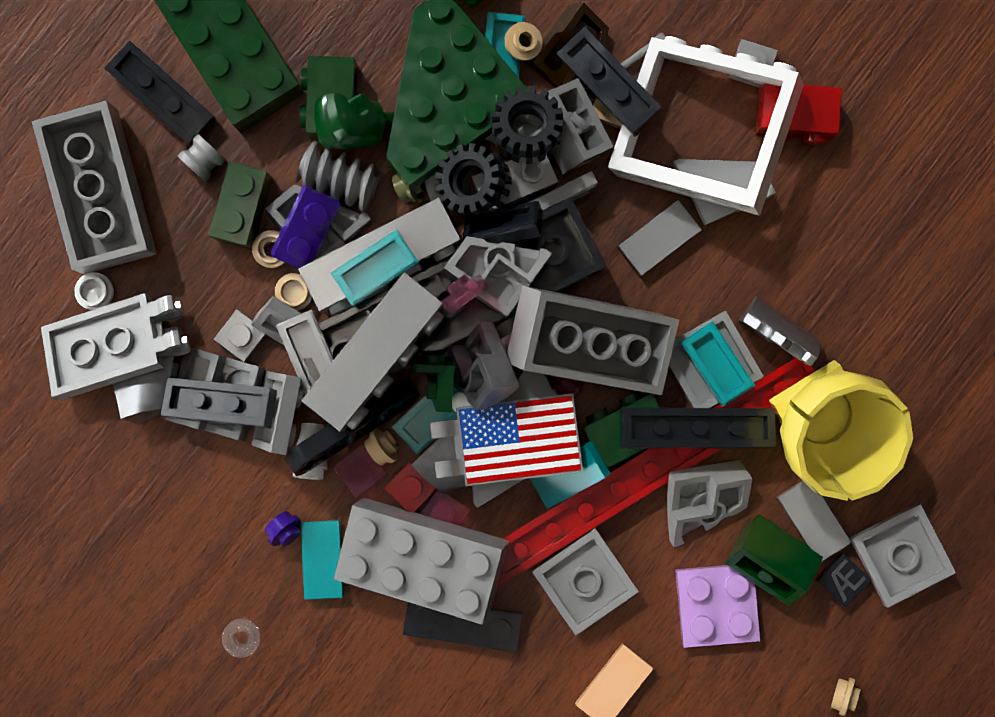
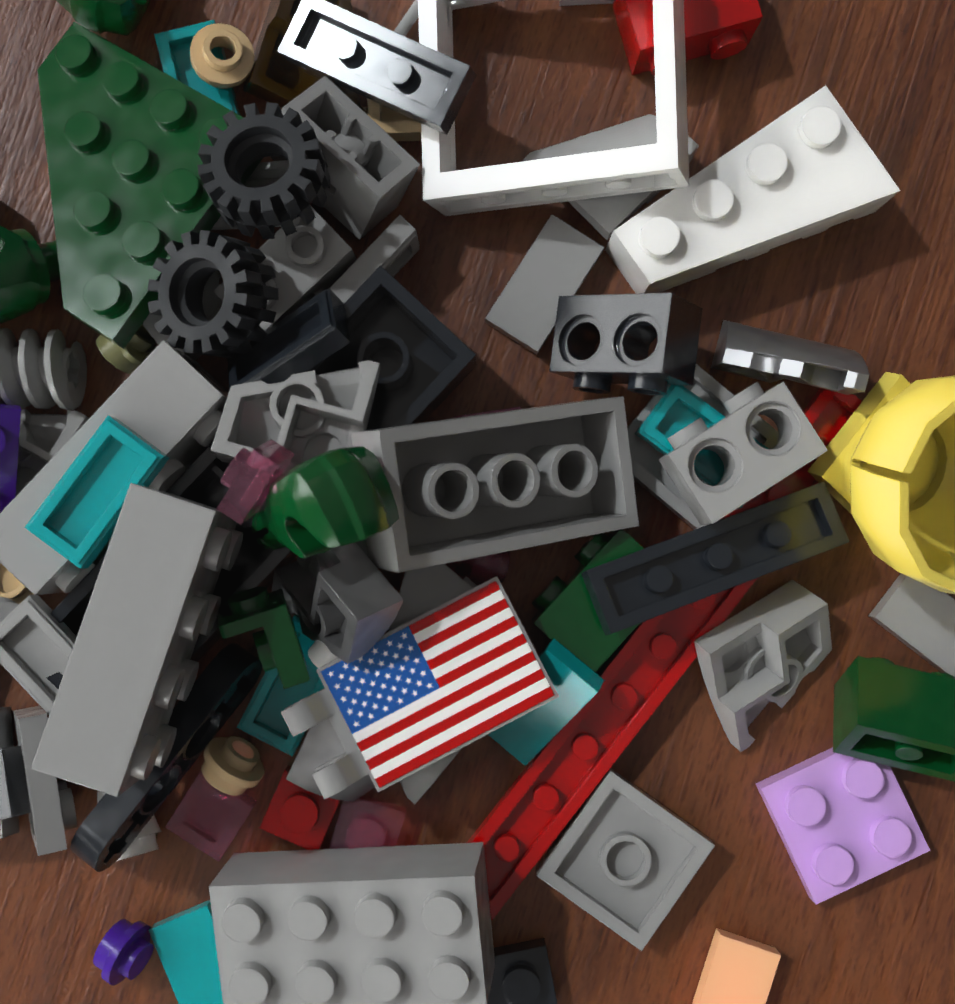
camera: 20 degrees left, 0 degrees up
(497, 320) = (327, 503): none -> dark green piece
(694, 285) = (625, 330): none -> black brick
(733, 383) = (746, 464): none -> light grey brick
(807, 232) = (767, 191): none -> white wedge

